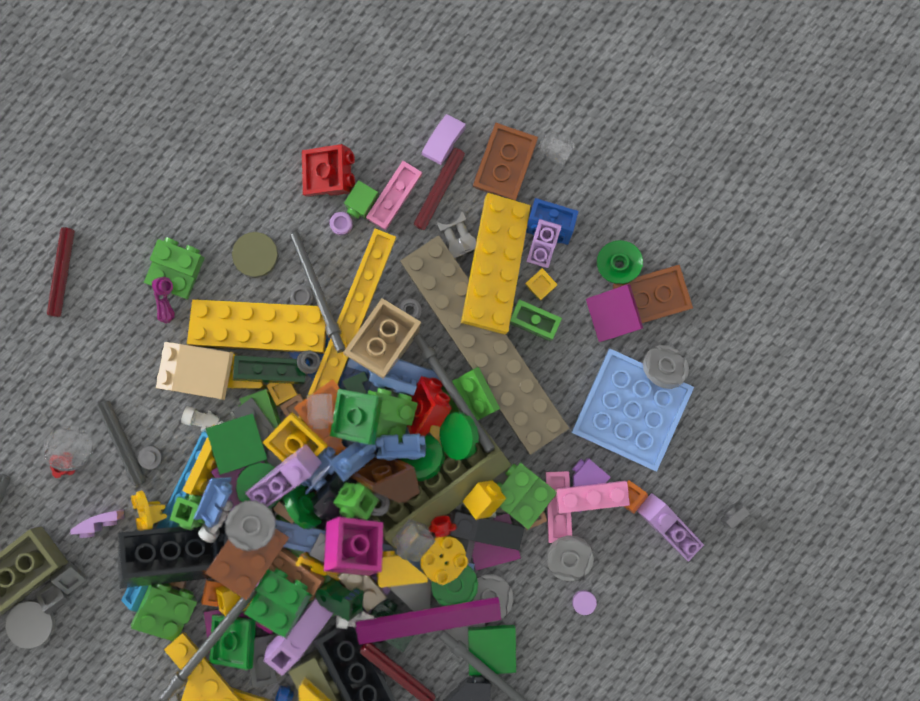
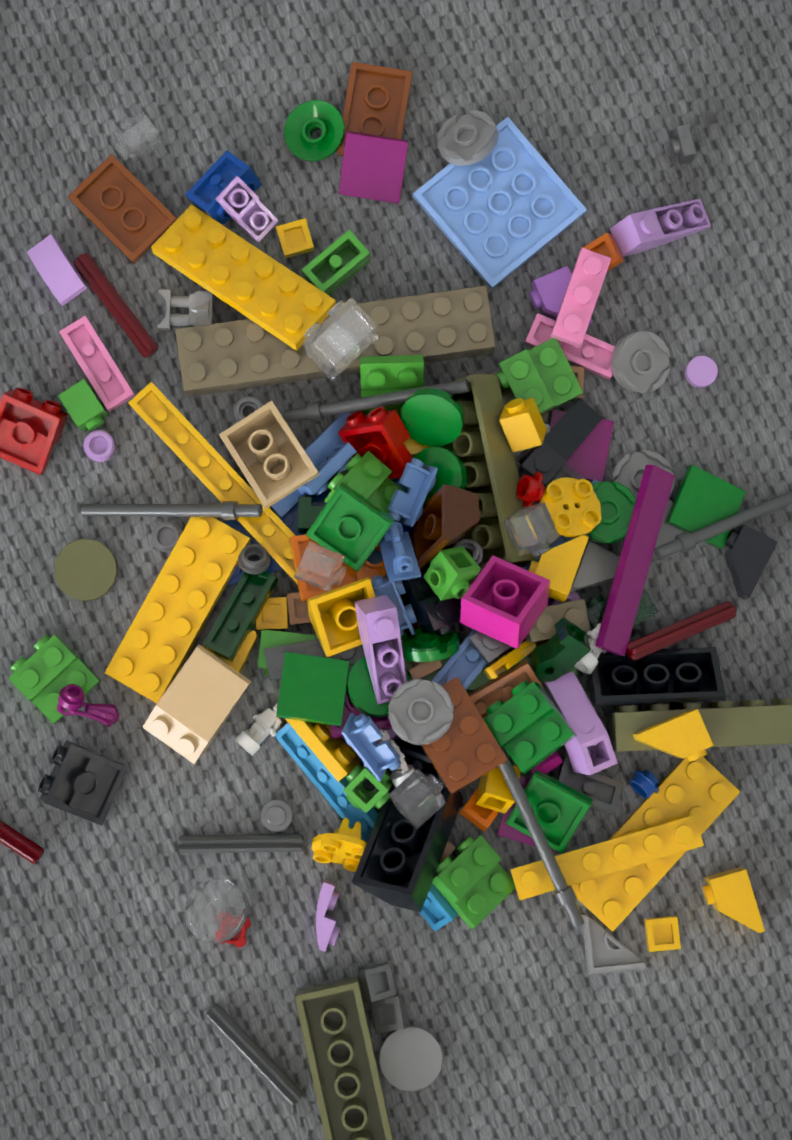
camera: 70 degrees left, 0 degrees up
(112, 319) = (82, 782): none -> black plate
(196, 549) = (418, 797): none -> clear brick
(480, 347) = (340, 338): none -> clear brick

